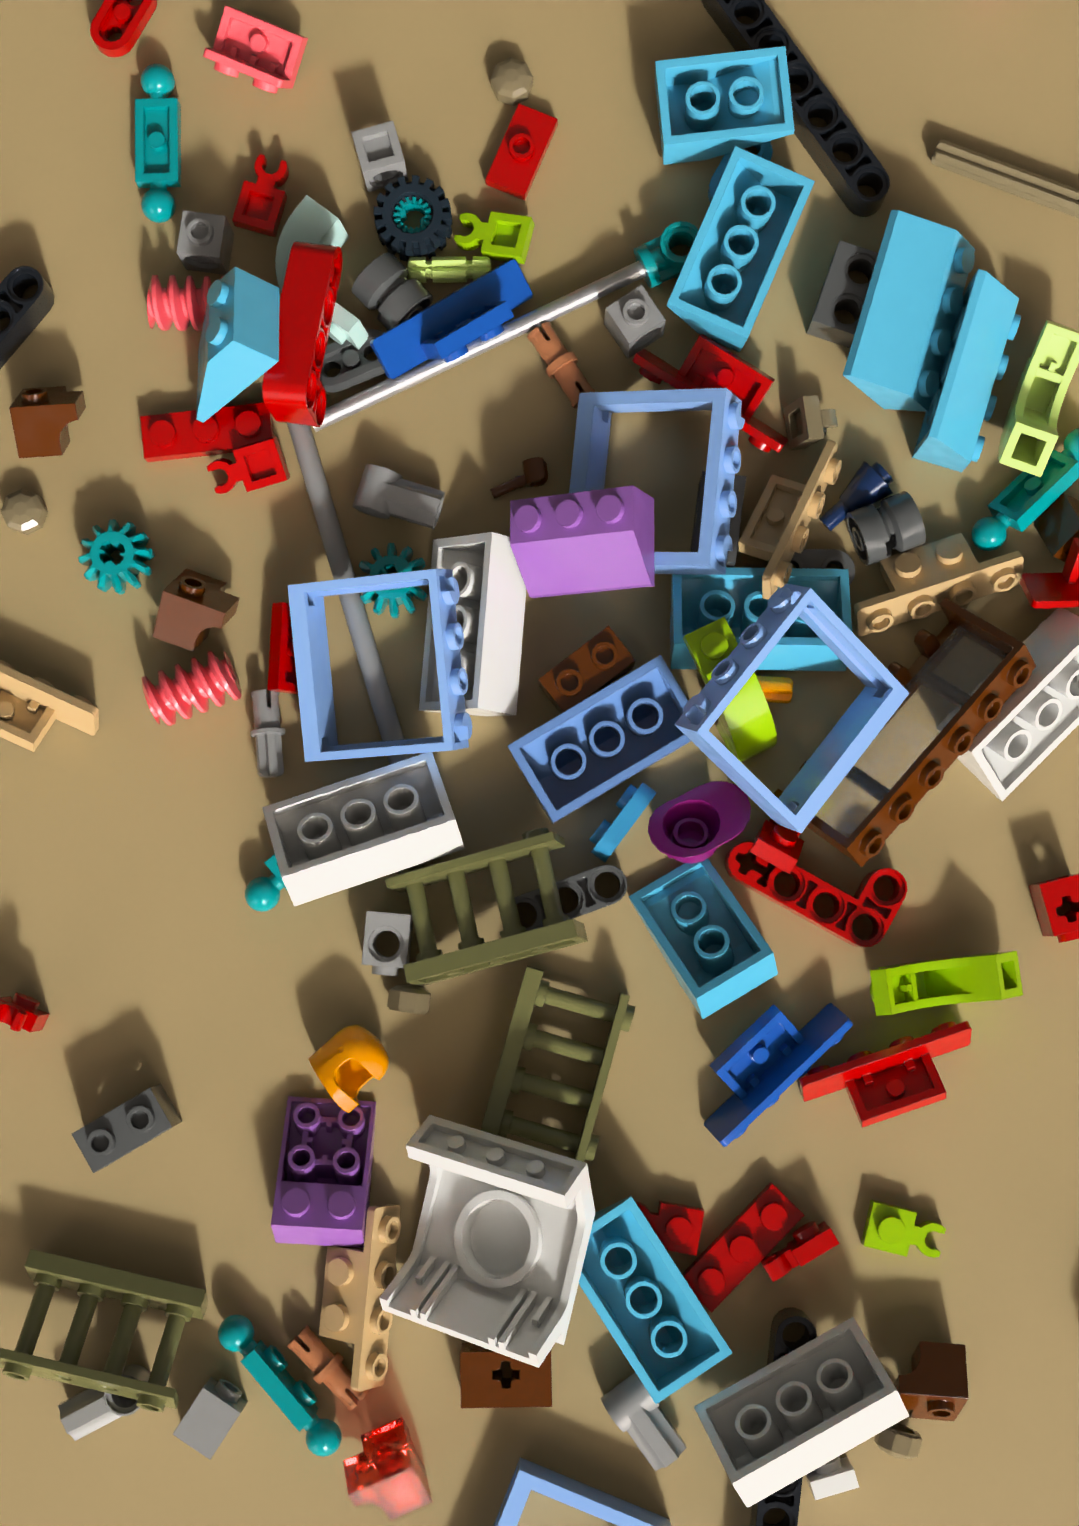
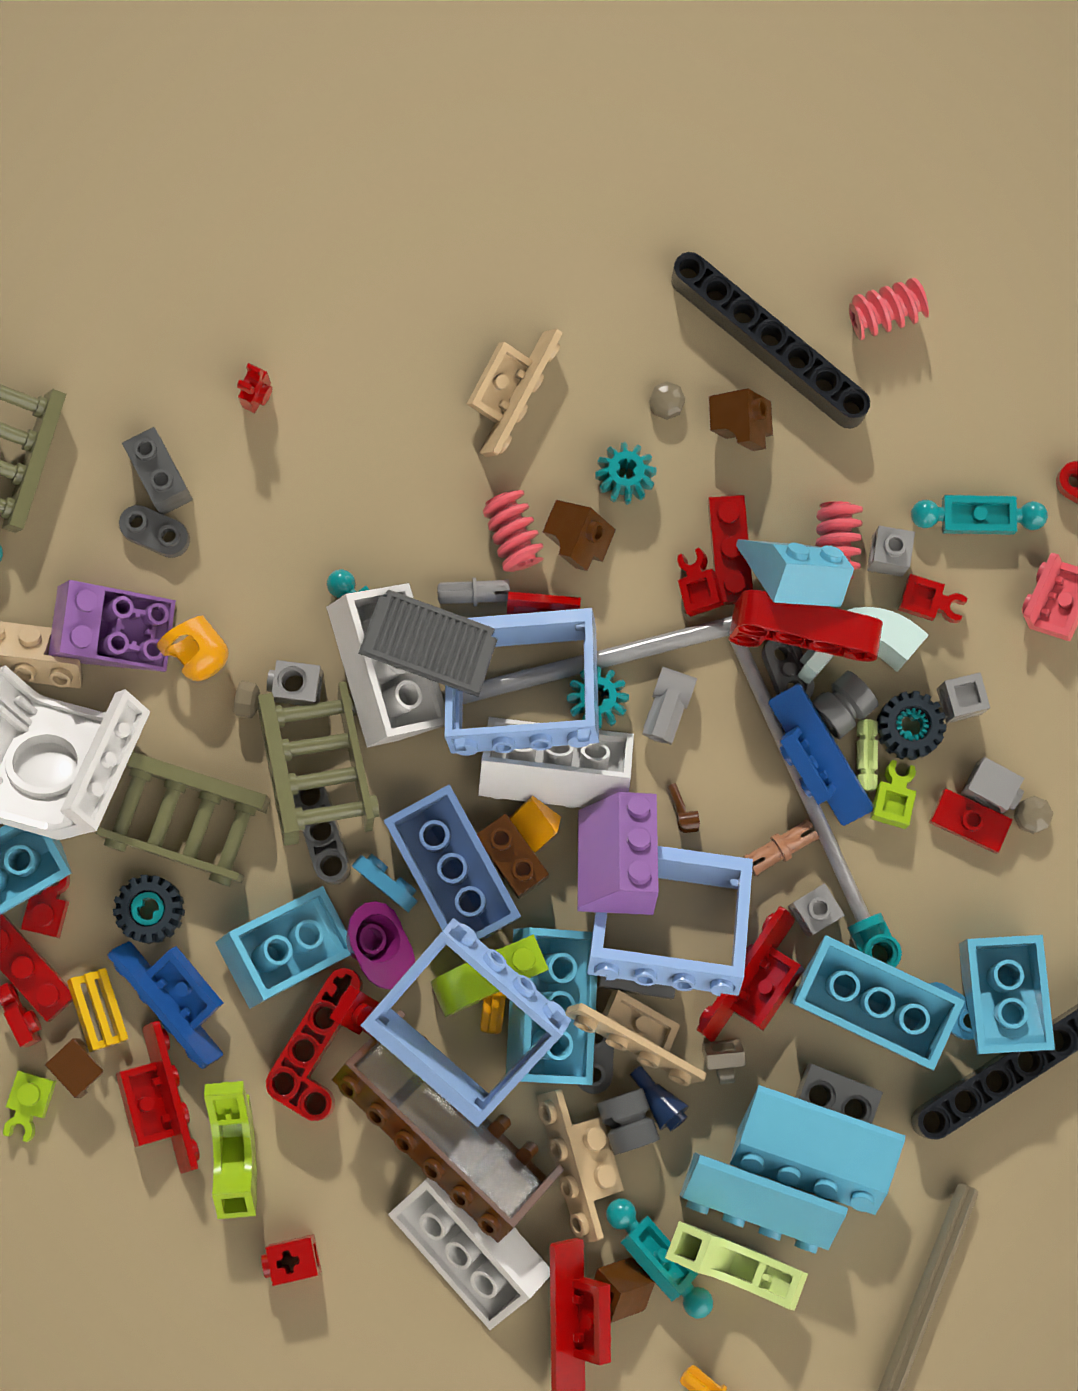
camera: 85 degrees right, 5 degrees down
(202, 1129) = (152, 531): none -> dark grey plate
(336, 776) = (429, 642): none -> dark grey window
(481, 124) = (993, 786): none -> light grey brick
(546, 645) = (536, 823): none -> light orange slope
(653, 1121) = (163, 921): none -> black bush
(783, 1138) = (111, 1005): none -> yellow tile
(858, 1175) = (75, 1067): none -> reddish brown panel

